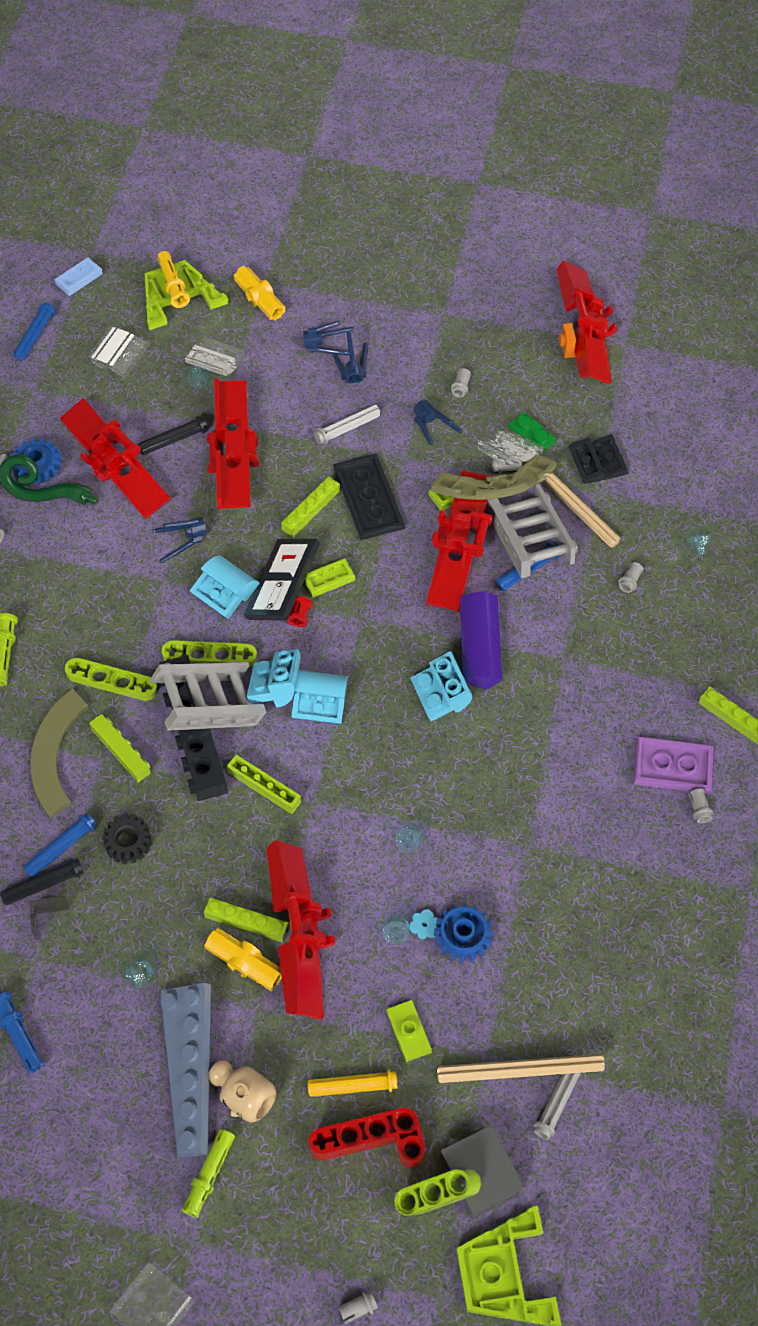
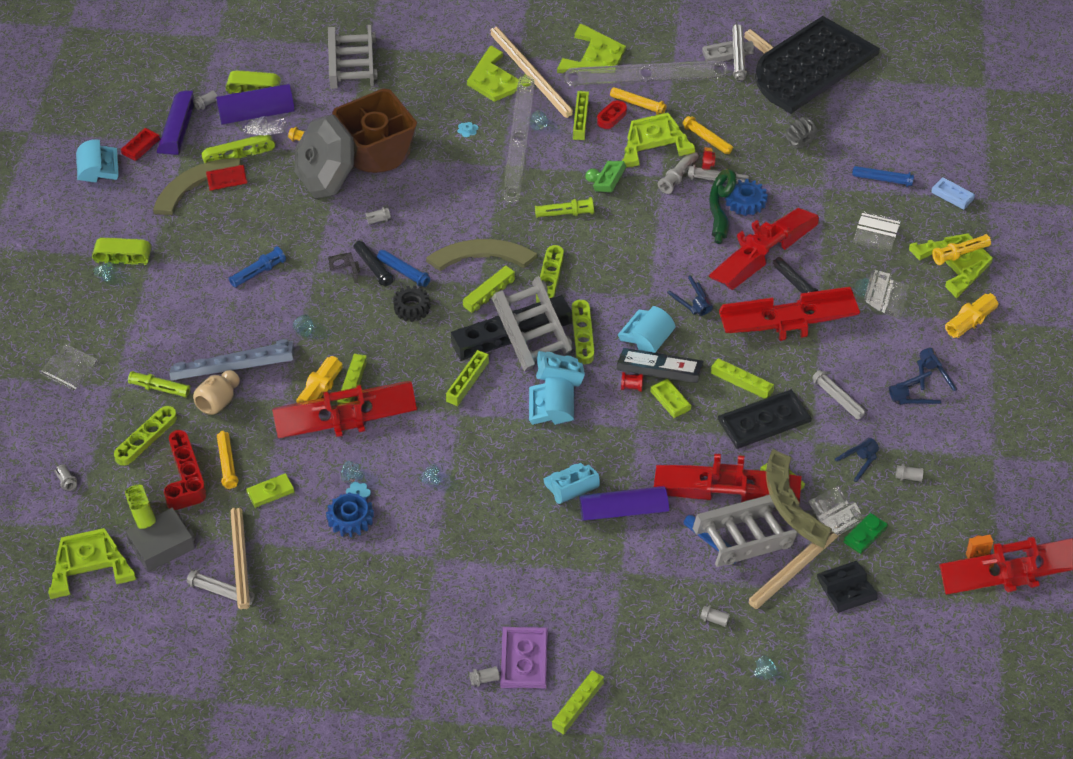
camera: 85 degrees right, 10 degrees down
(298, 1191) = (142, 434): none -> lime beam

